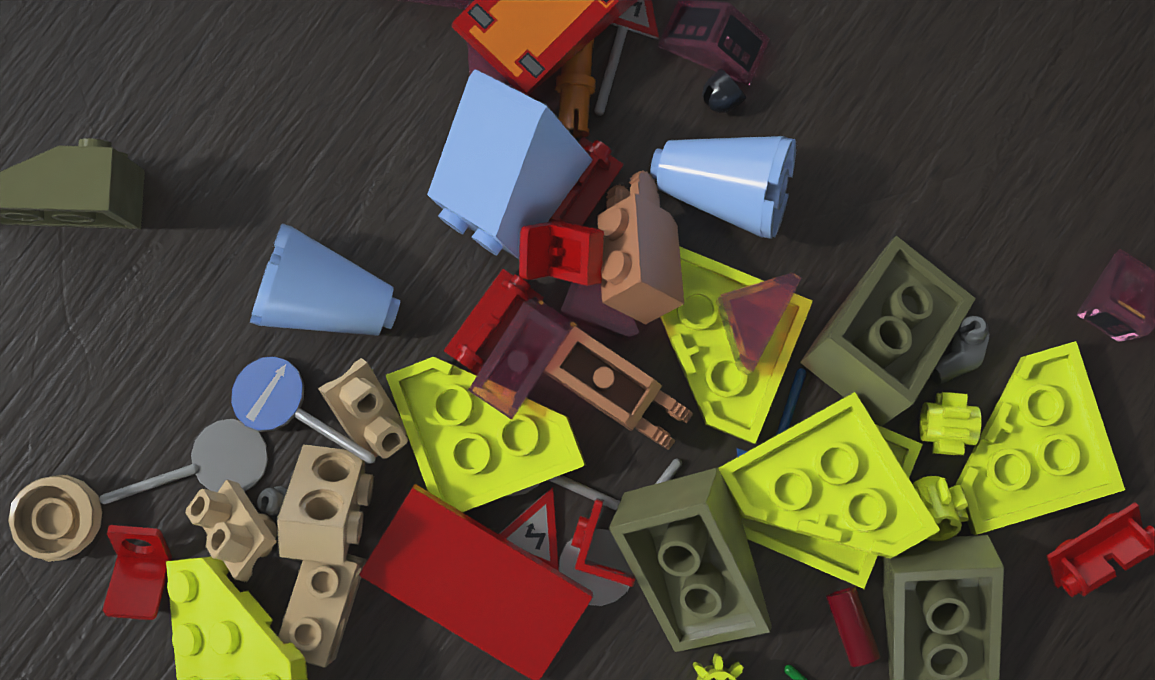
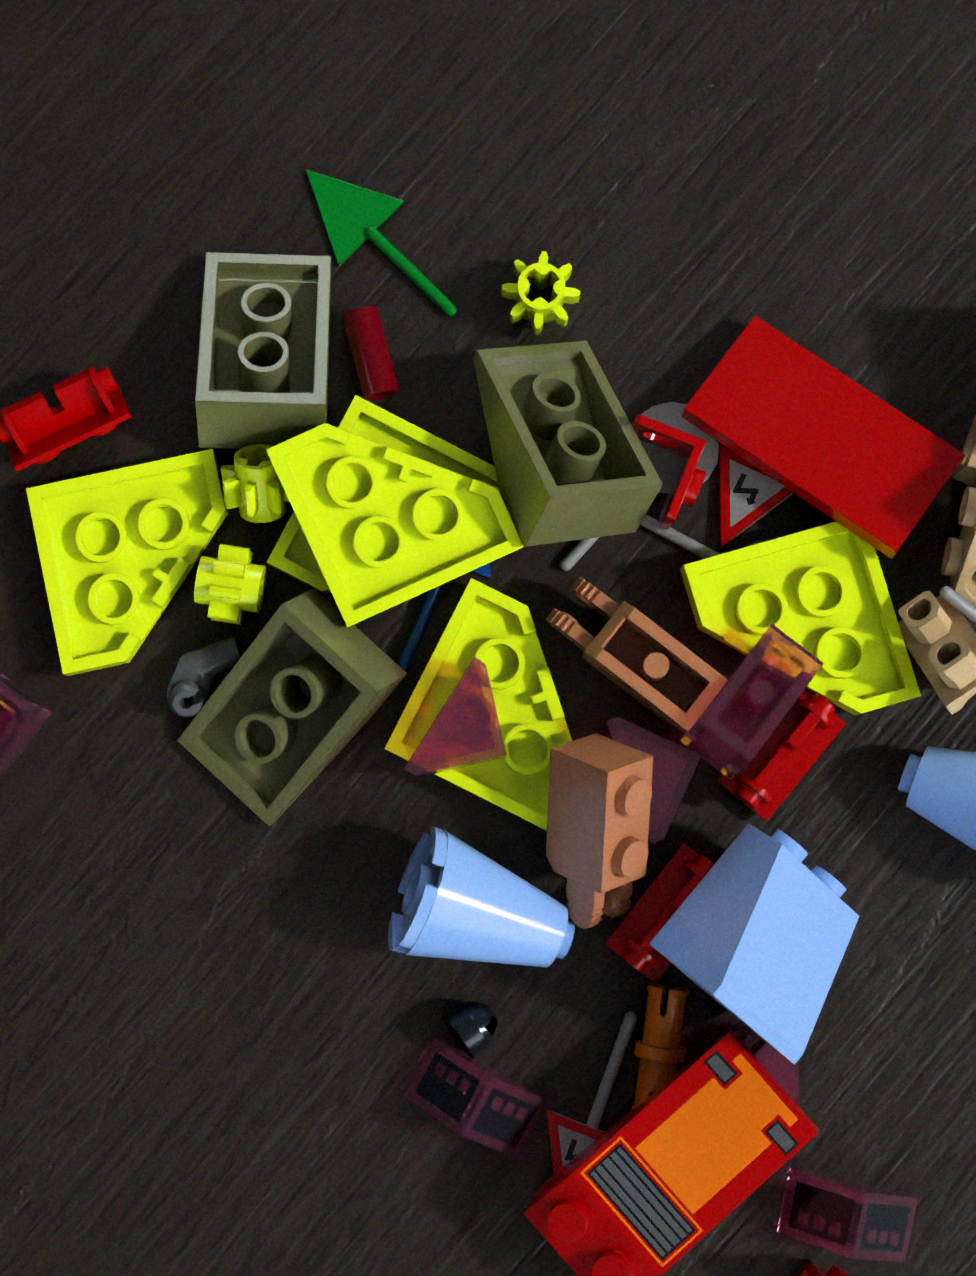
camera: 175 degrees left, 0 degrees up
(561, 252) = (697, 825): red bracket -> none

